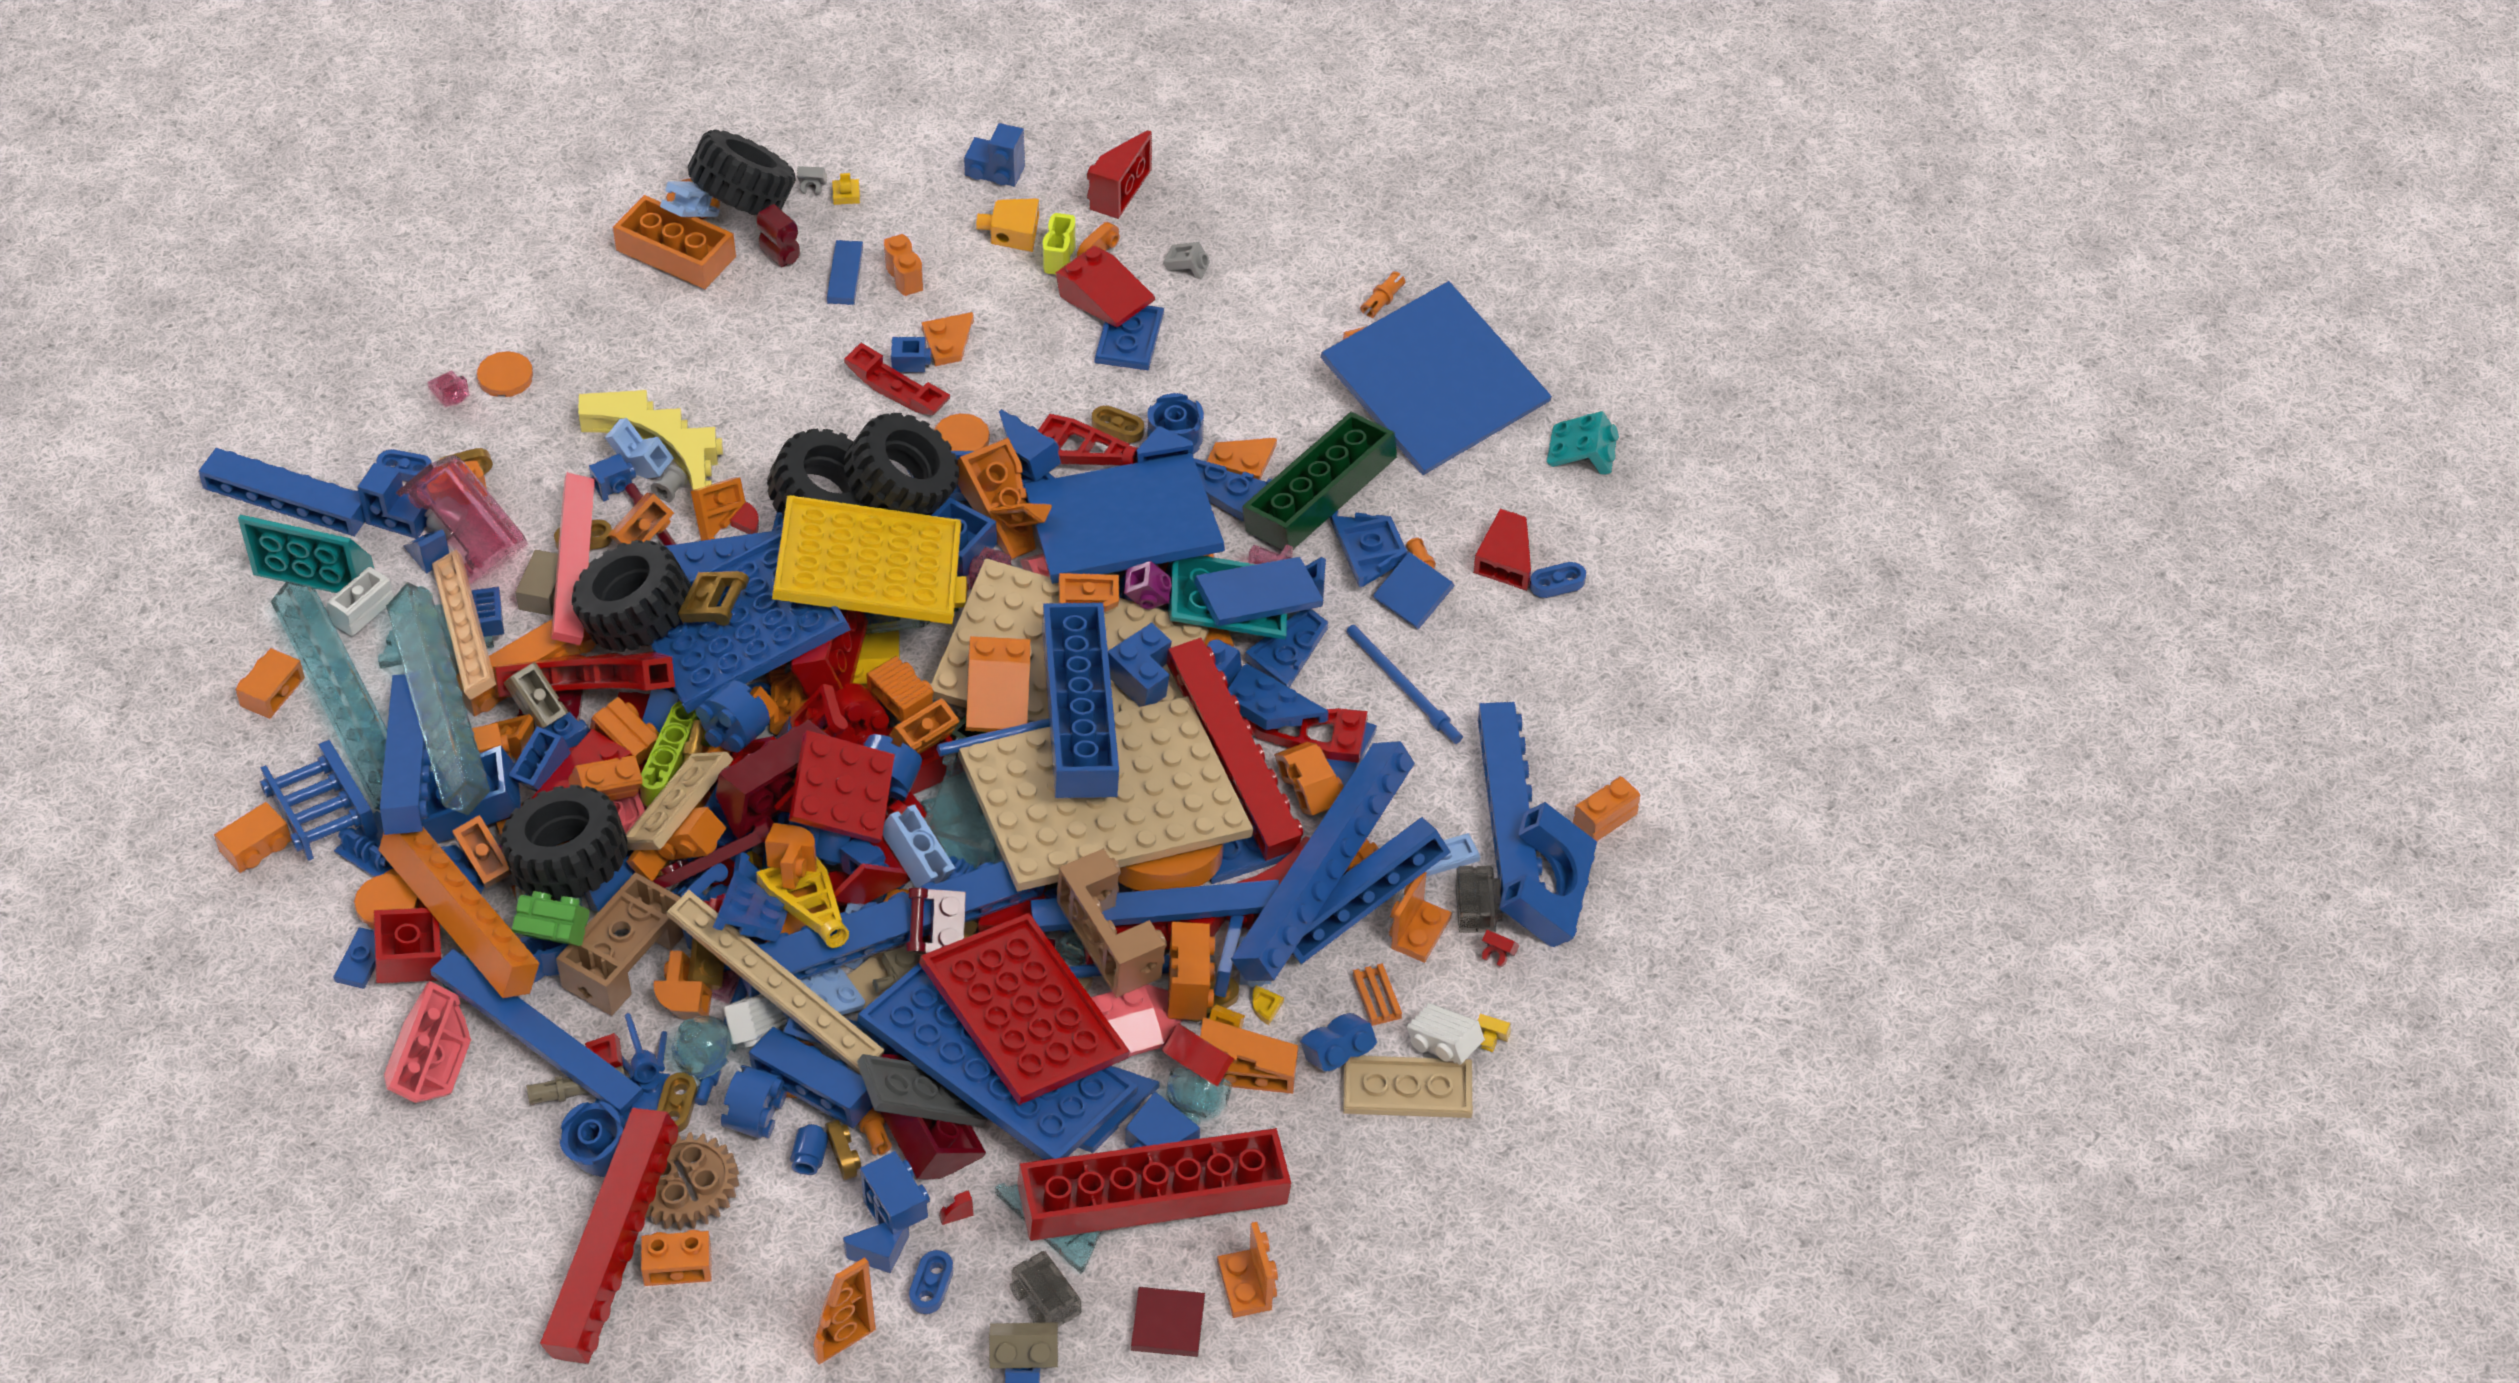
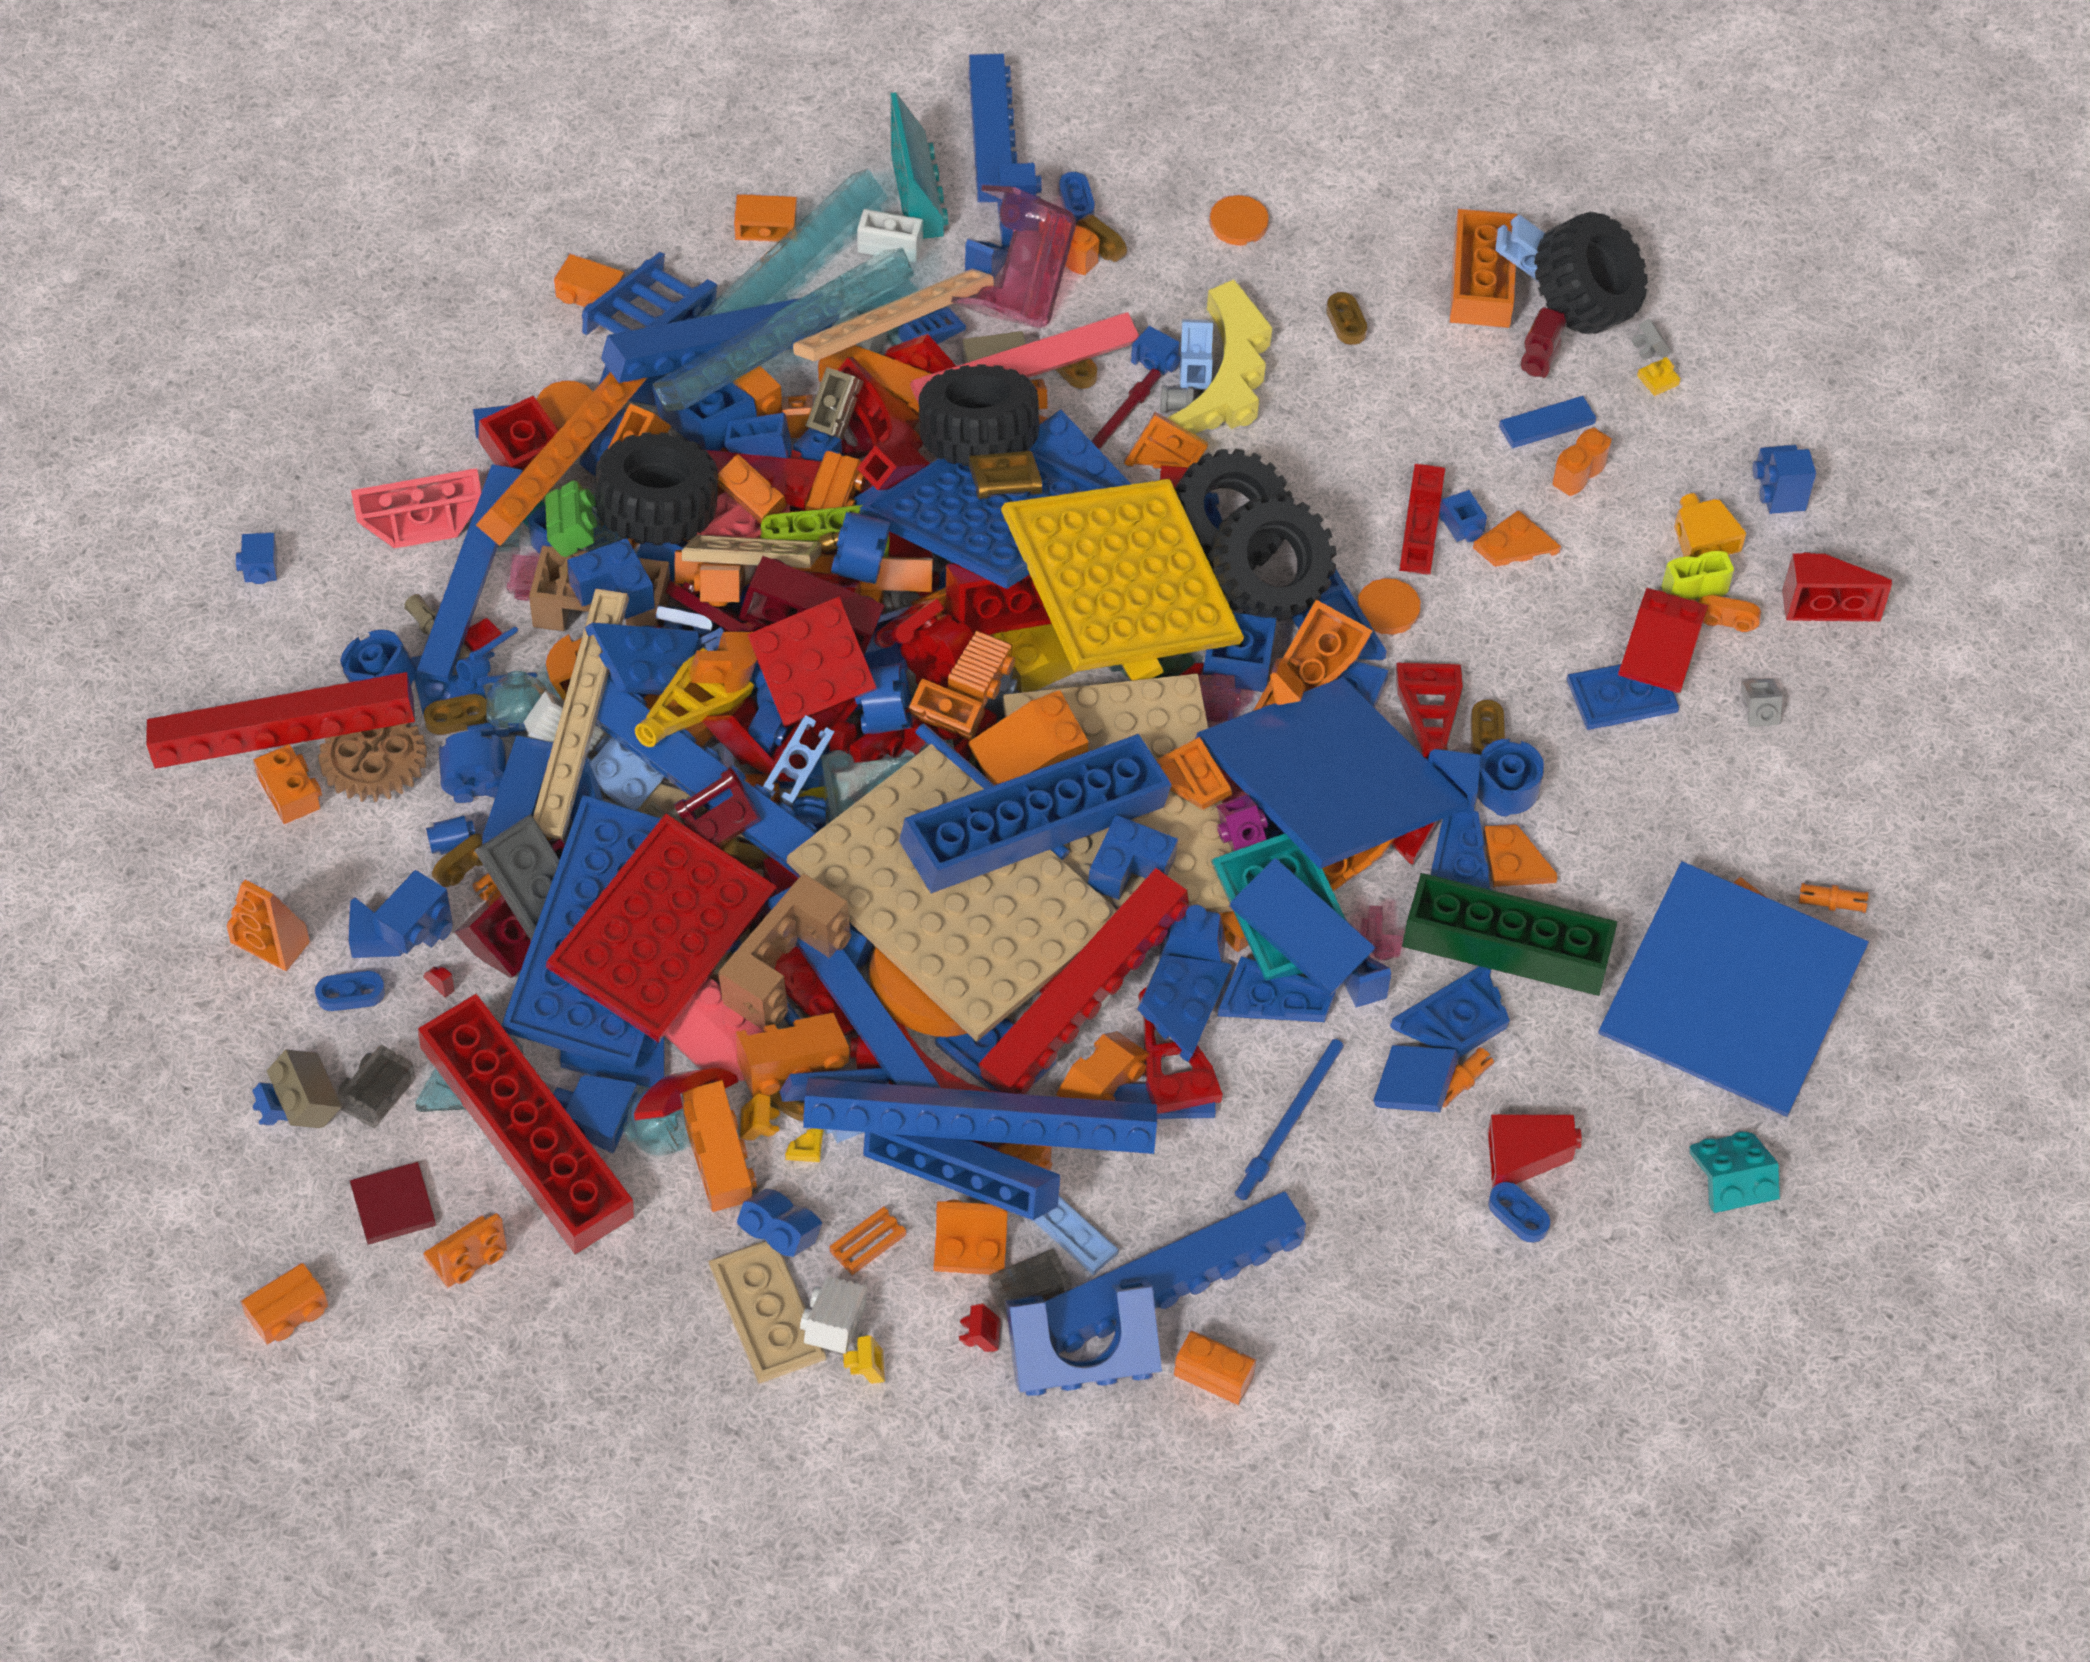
camera: 65 degrees right, 5 degrees up
(398, 1199) = (258, 558): none -> blue brick
(449, 388) = (1192, 187): clear pink bracket -> none
(517, 622) = (922, 354): none -> red plate
(558, 998) = (522, 576): none -> clear pink bracket
(637, 905) = (612, 569): none -> blue brick
(643, 521) = (1100, 395): orange brick -> none
(659, 346) = (1348, 320): none -> pearl gold plate
(1035, 451) = (1387, 657): blue slope -> none

